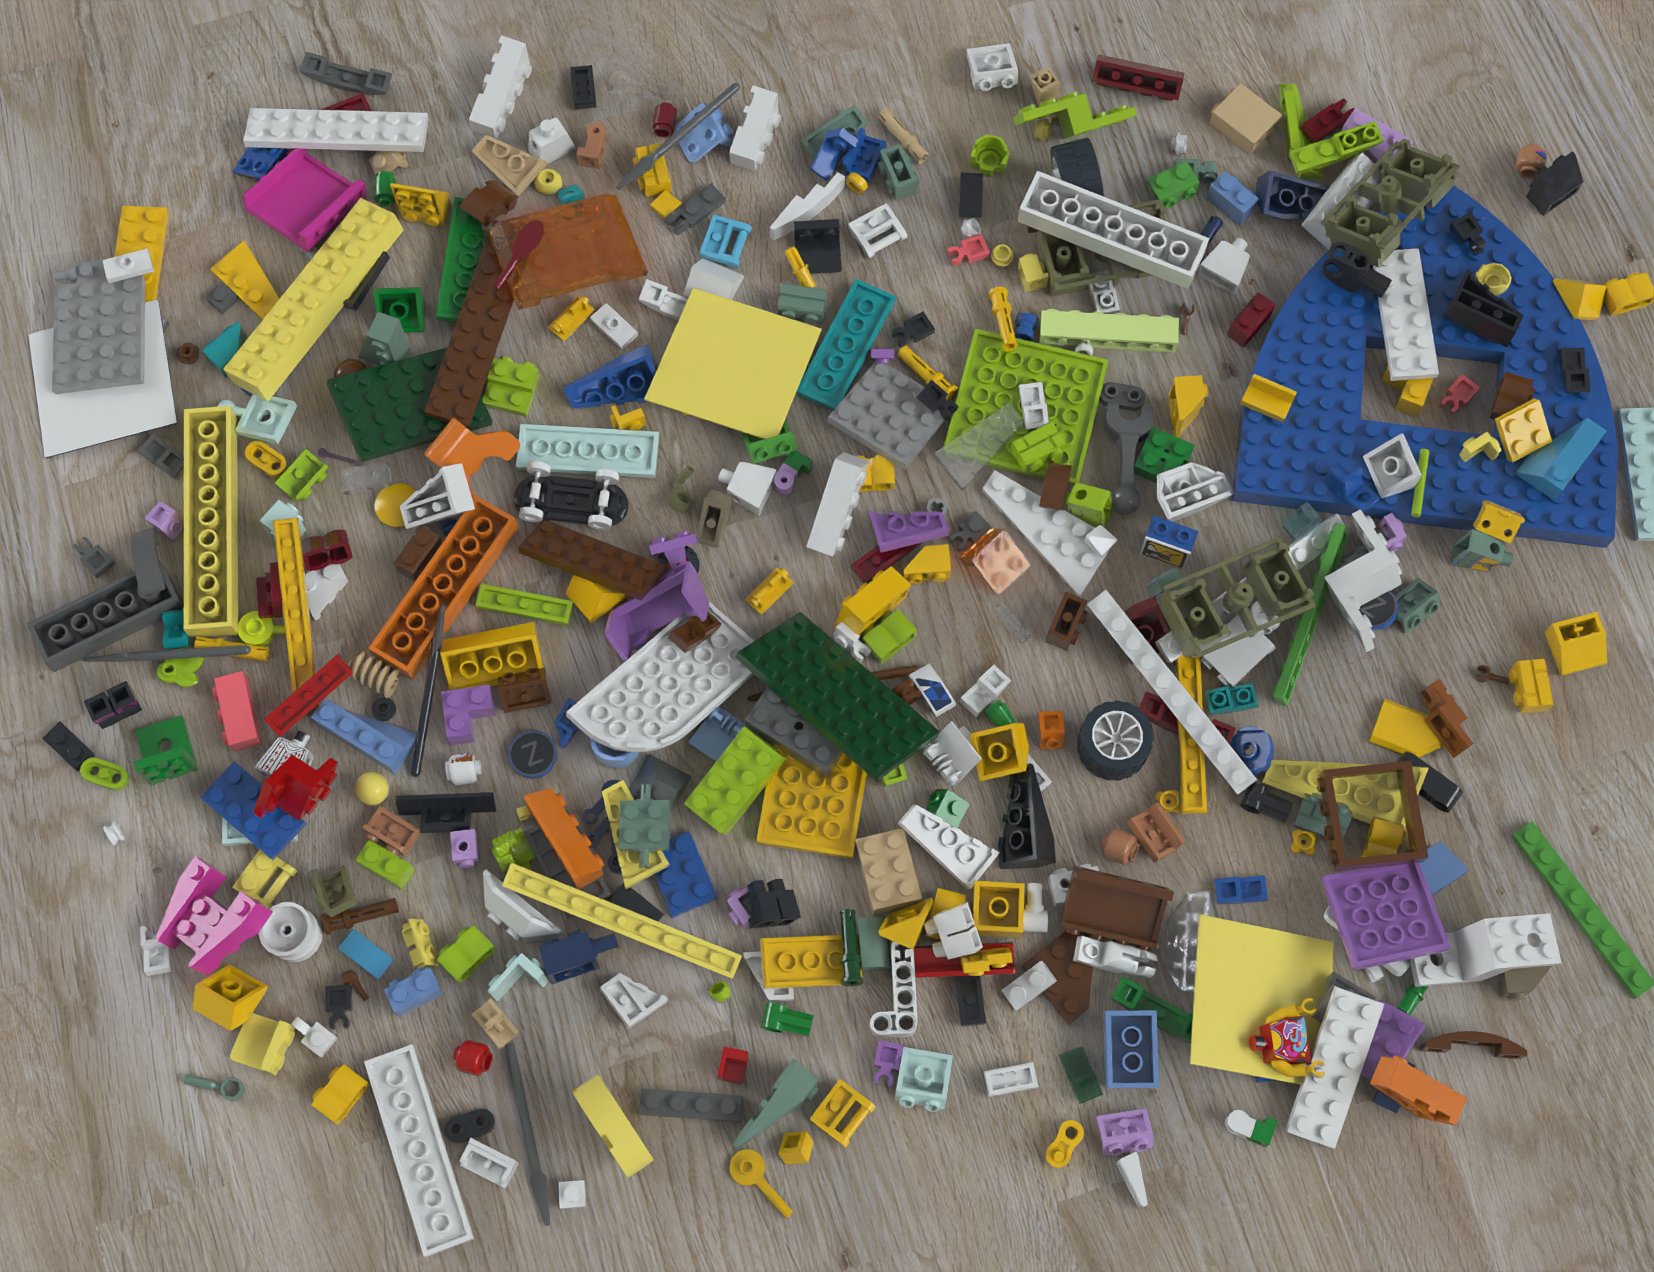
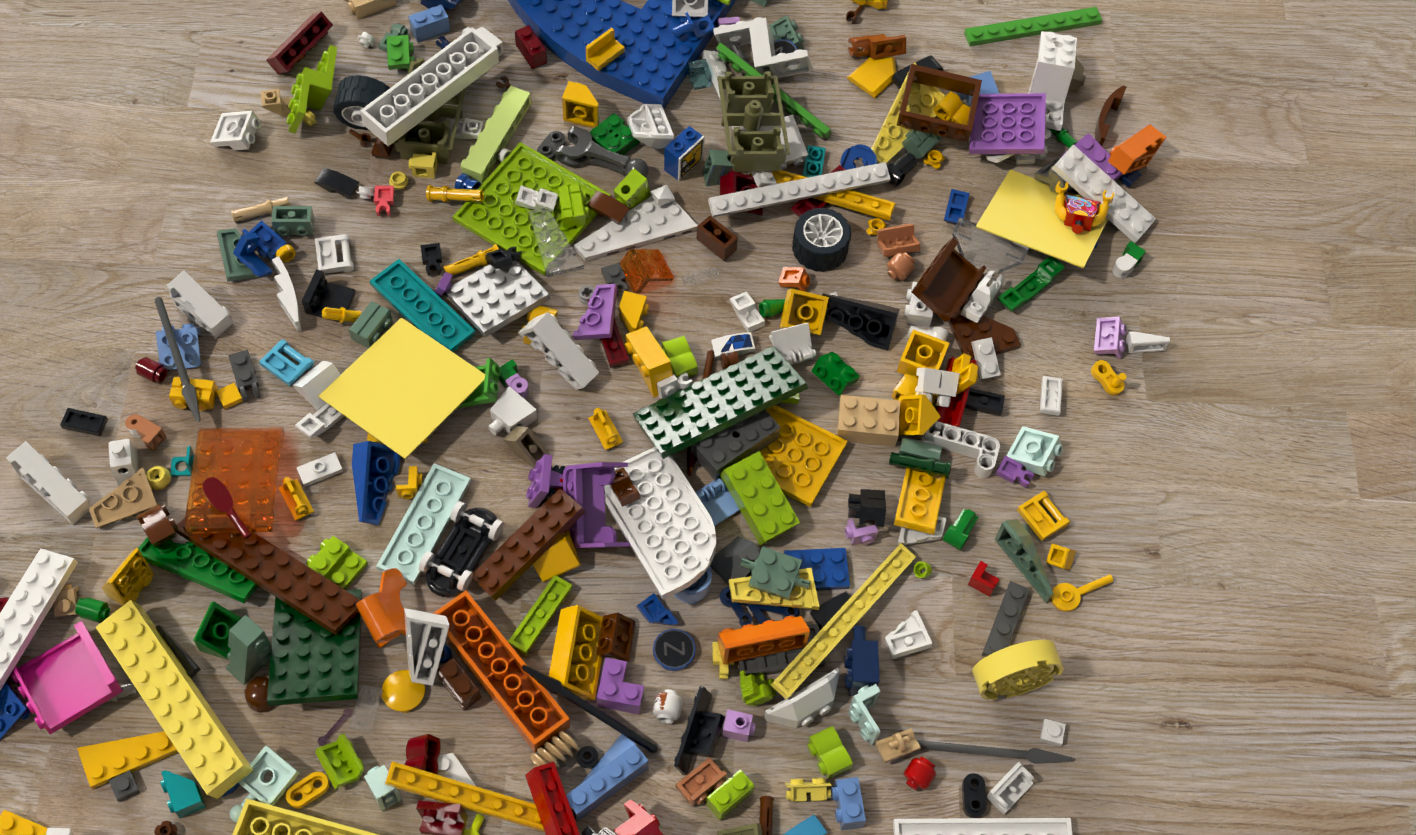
camera: 75 degrees left, 10 degrees down
(371, 788) = (658, 785): light yellow piece -> none
(679, 499) = (498, 468): olive plate -> none
(957, 852) = (864, 371): white wing -> none
(989, 155) = (312, 156): lime hair -> none
(1080, 1074) = (1059, 352): clear green slope -> none
(1131, 1049) = (1055, 308): medium blue brick -> none

